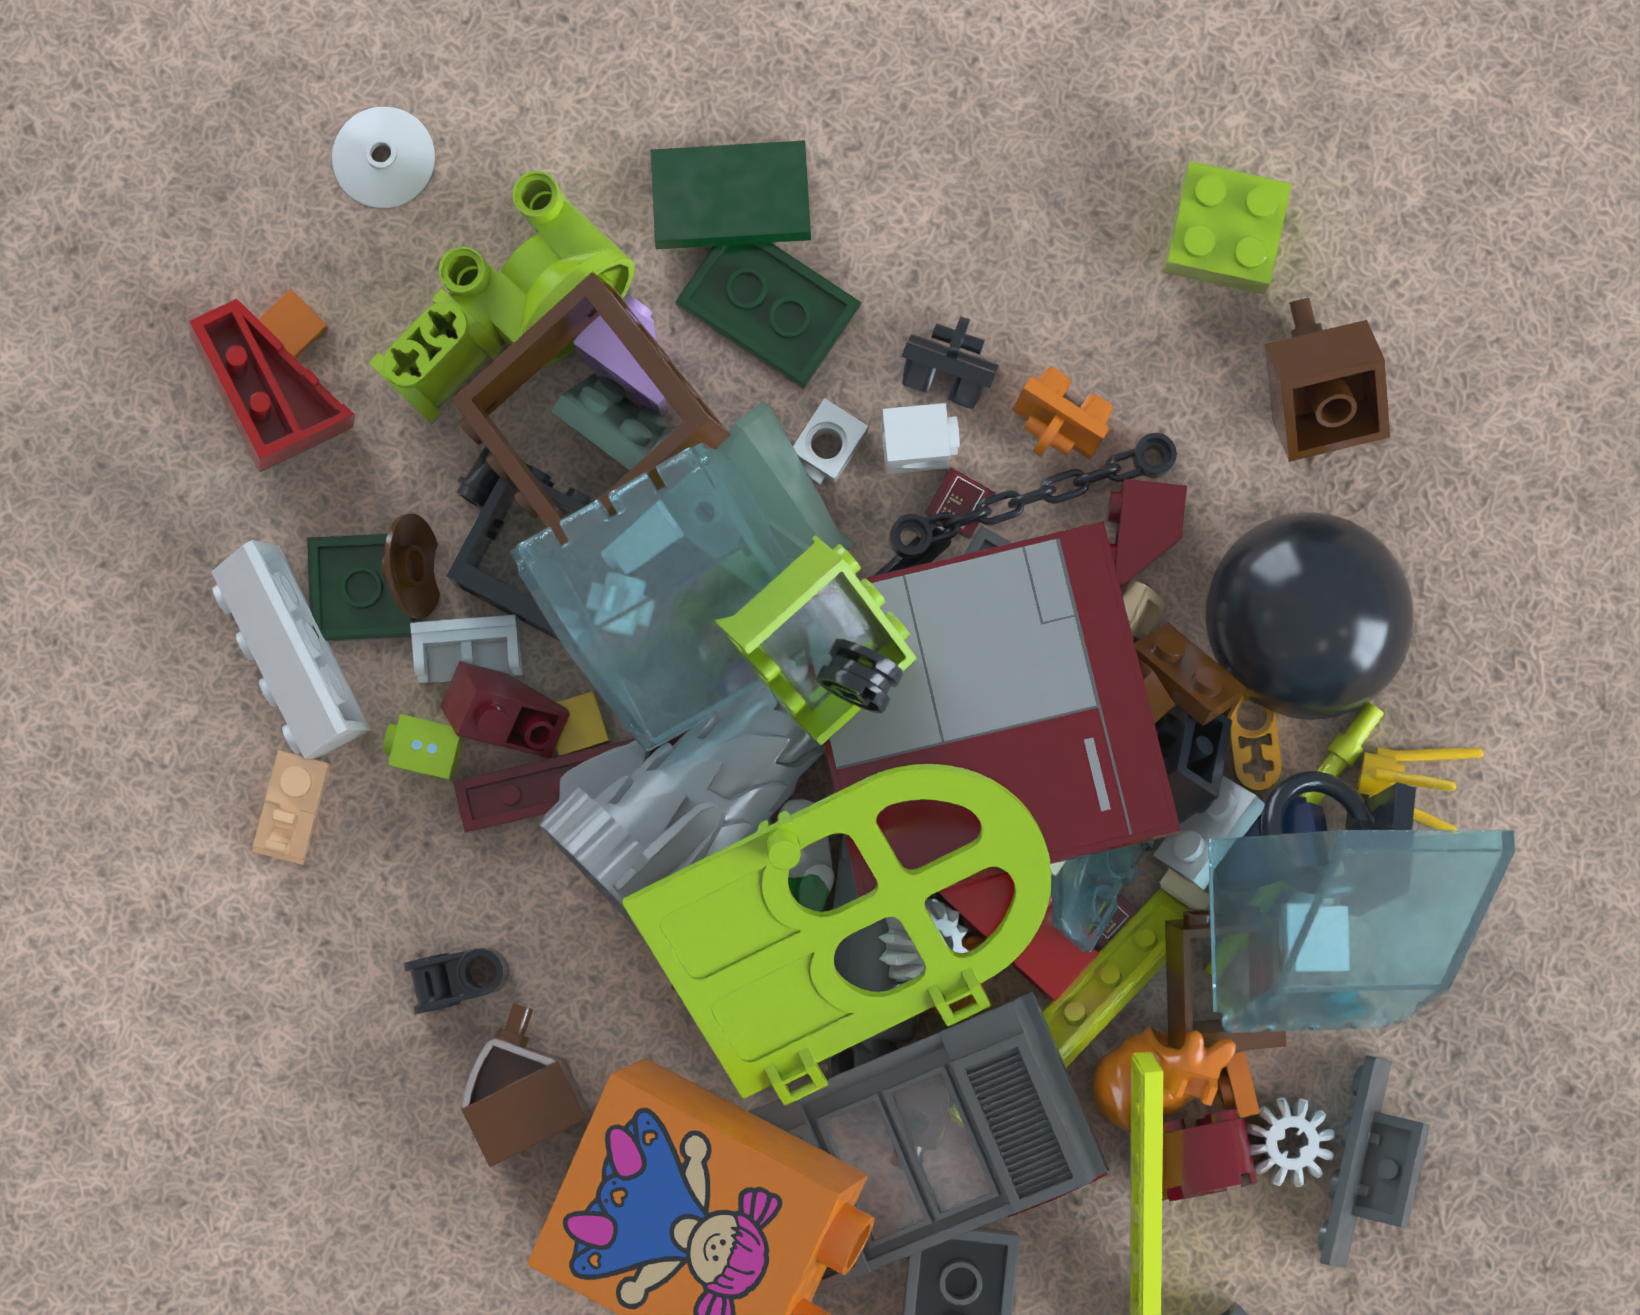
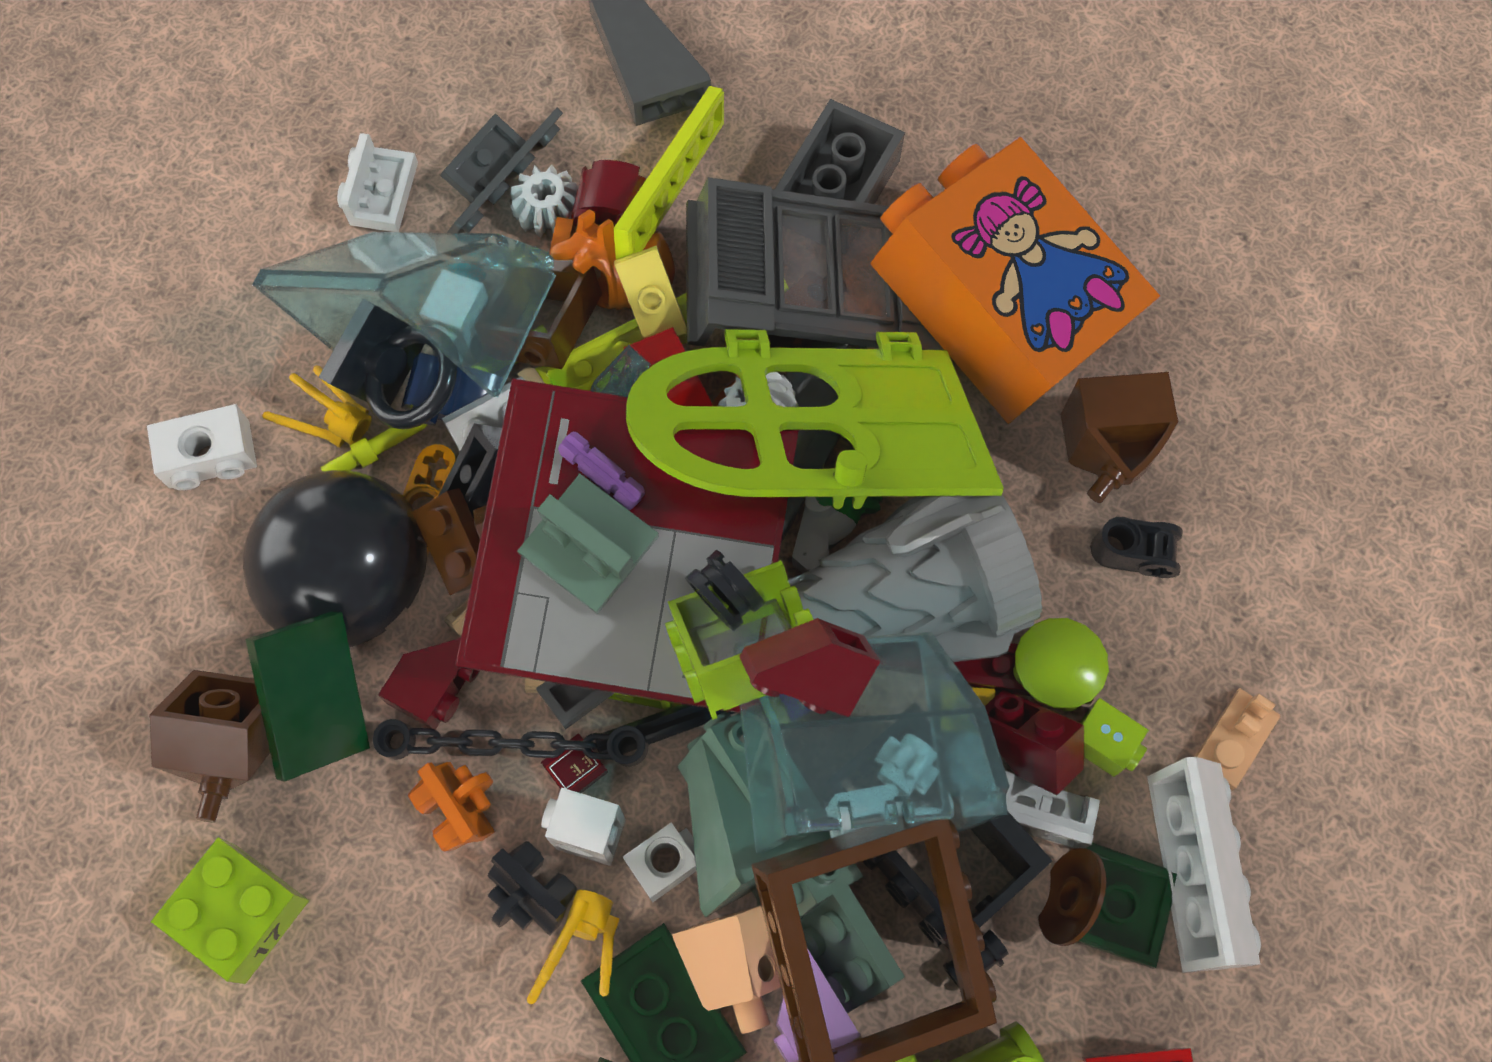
camera: 160 degrees left, 15 degrees down
(498, 803) = (1061, 663): none -> lime dish
(724, 367) = (731, 964): none -> light nougat torso
(739, 607) = (813, 663): none -> dark red slope
(880, 360) = (585, 920): none -> yellow plant
(1022, 689) = (587, 542): none -> sand green bracket
(1042, 766) = (601, 470): none -> medium lavender axle
(1096, 1030) = (650, 293): none -> light yellow plate
(1251, 452) = (308, 695): none -> dark green tile
(1496, 1081) = (376, 185): none -> white bracket
(1549, 669) = (179, 440): none -> white brick

